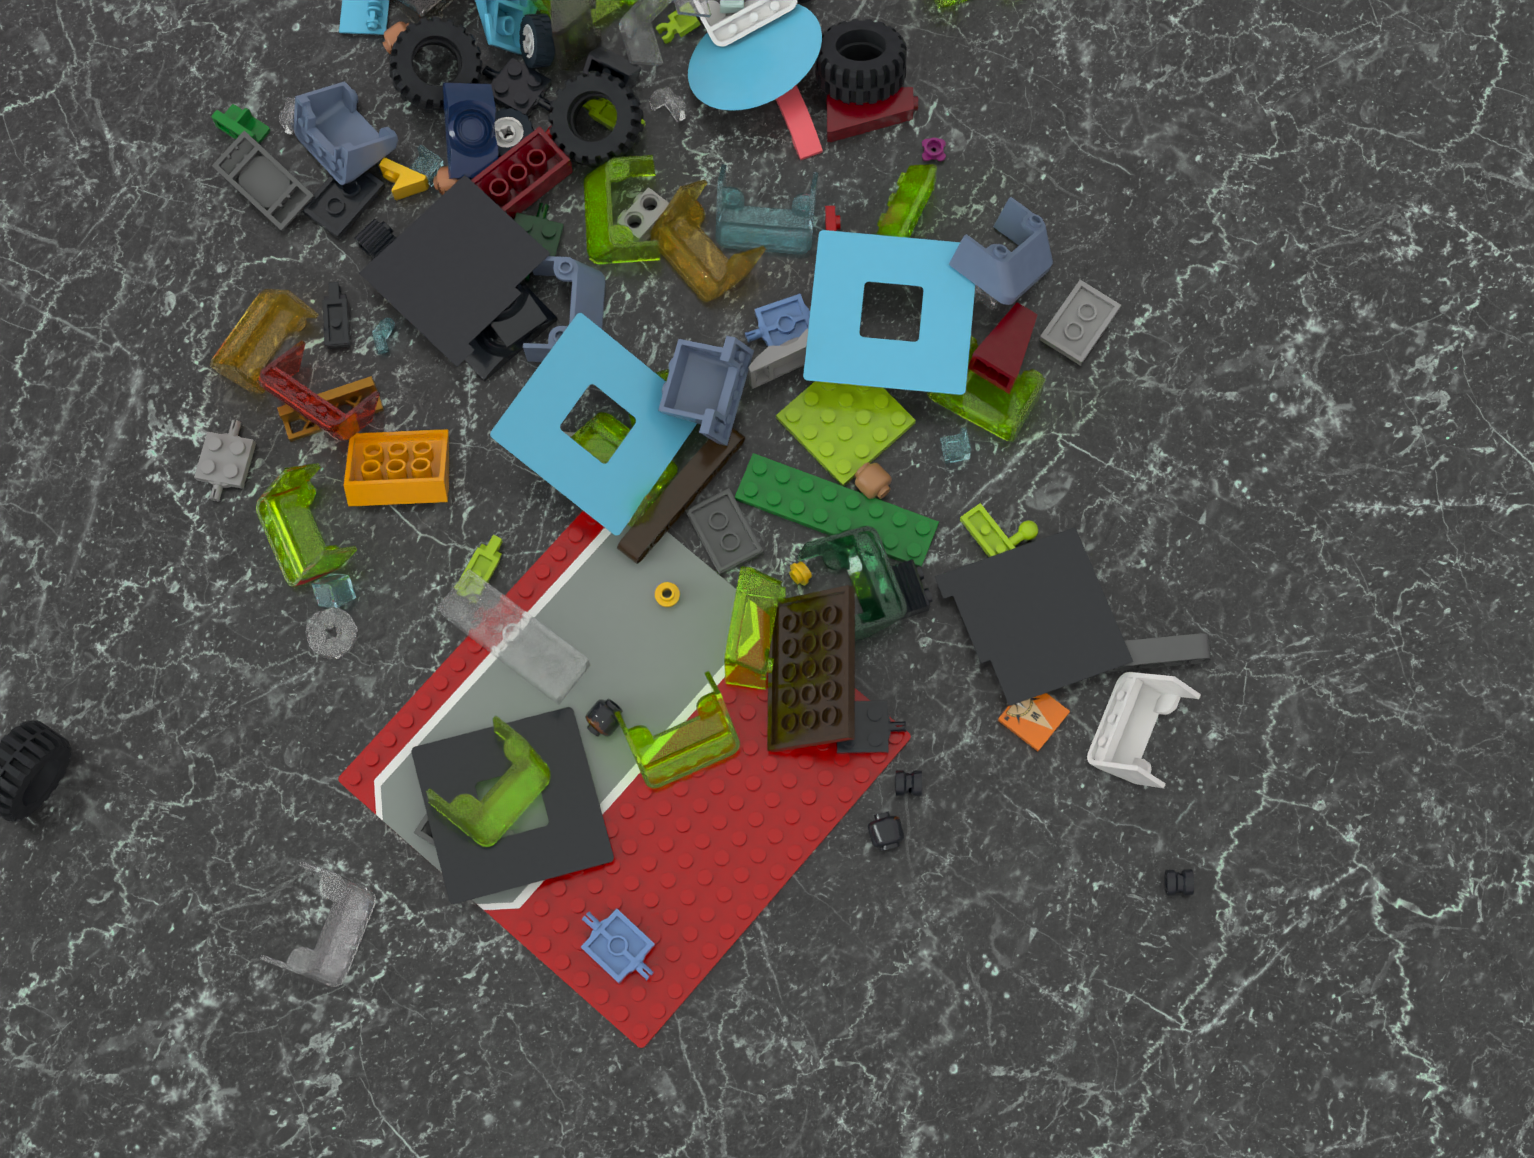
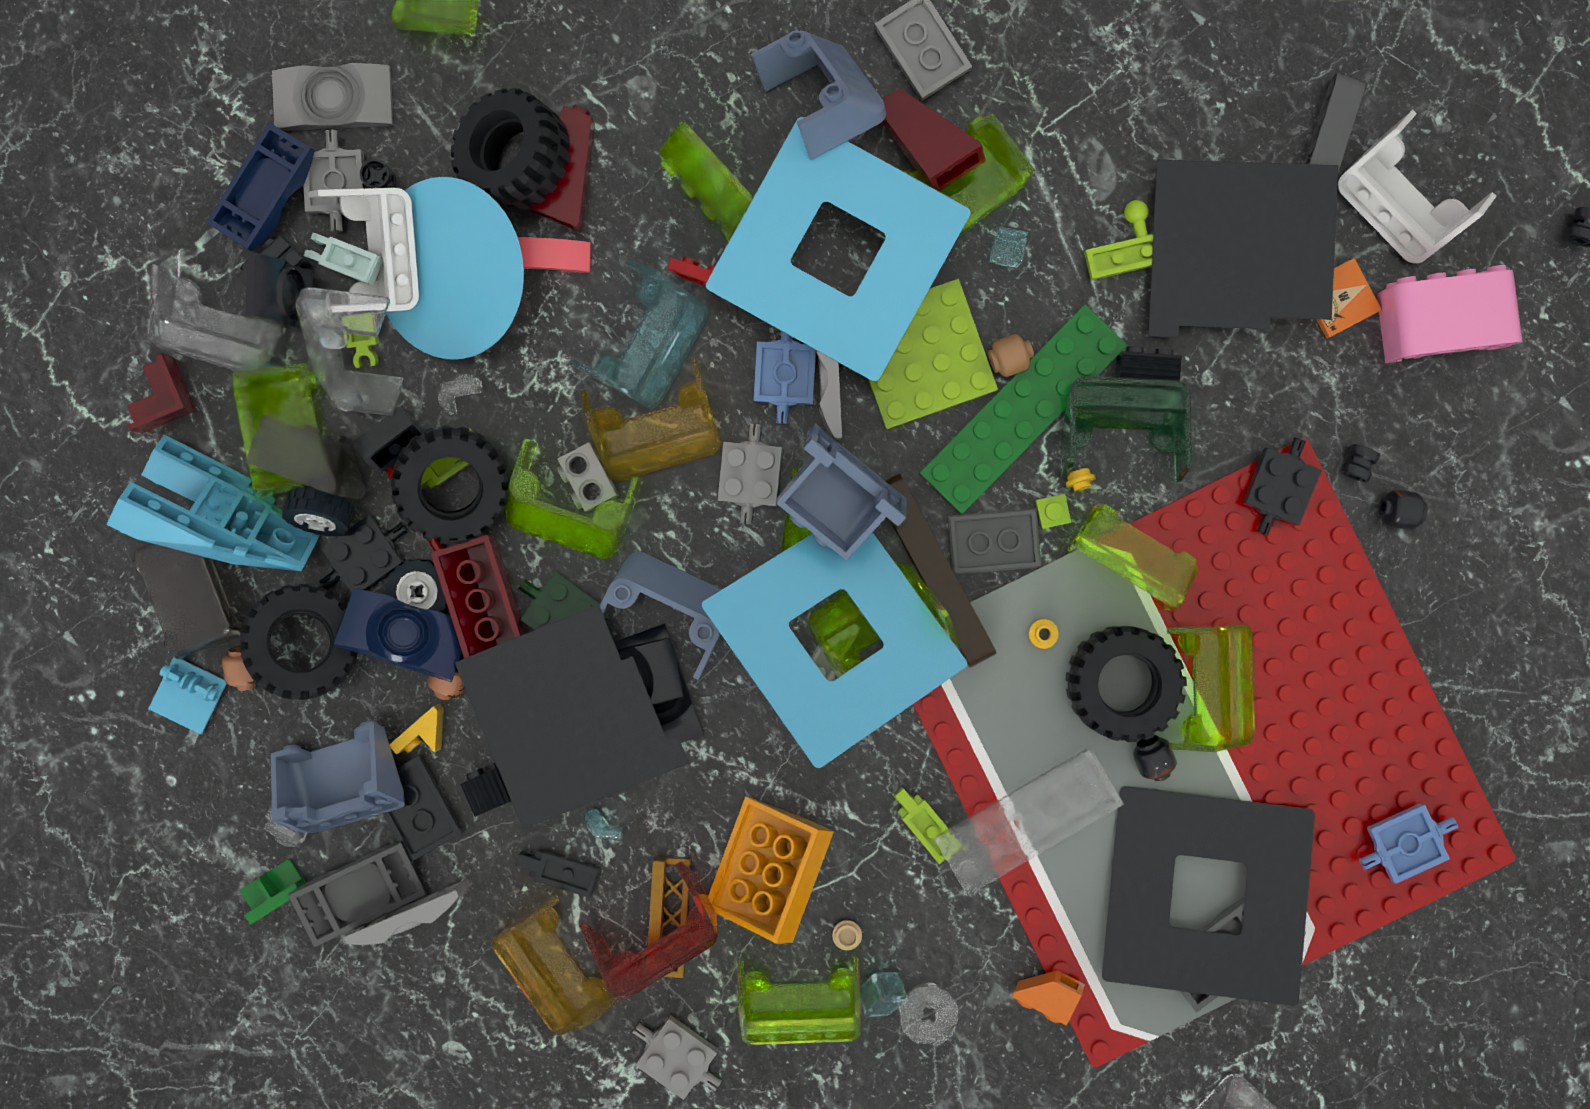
camera: 70 degrees left, 15 degrees up
(263, 223) = (408, 916): none -> light grey slope
(370, 547) = (847, 935): none -> tan plate
(382, 718) = (1050, 994): none -> orange slope
(427, 164) = (416, 699): clear light blue panel -> none
(506, 800) = (1190, 864): clear neon green windscreen -> none
(646, 634) = (1164, 693): none -> black tyre
(699, 326) = (750, 474): none -> light grey plate
(767, 563) = (1052, 511): none -> lime plate
(812, 670) = (1216, 512): dark brown plate -> none
(931, 143) = (642, 108): magenta plate -> none
(1057, 798) = (1449, 313): none -> bright pink windscreen

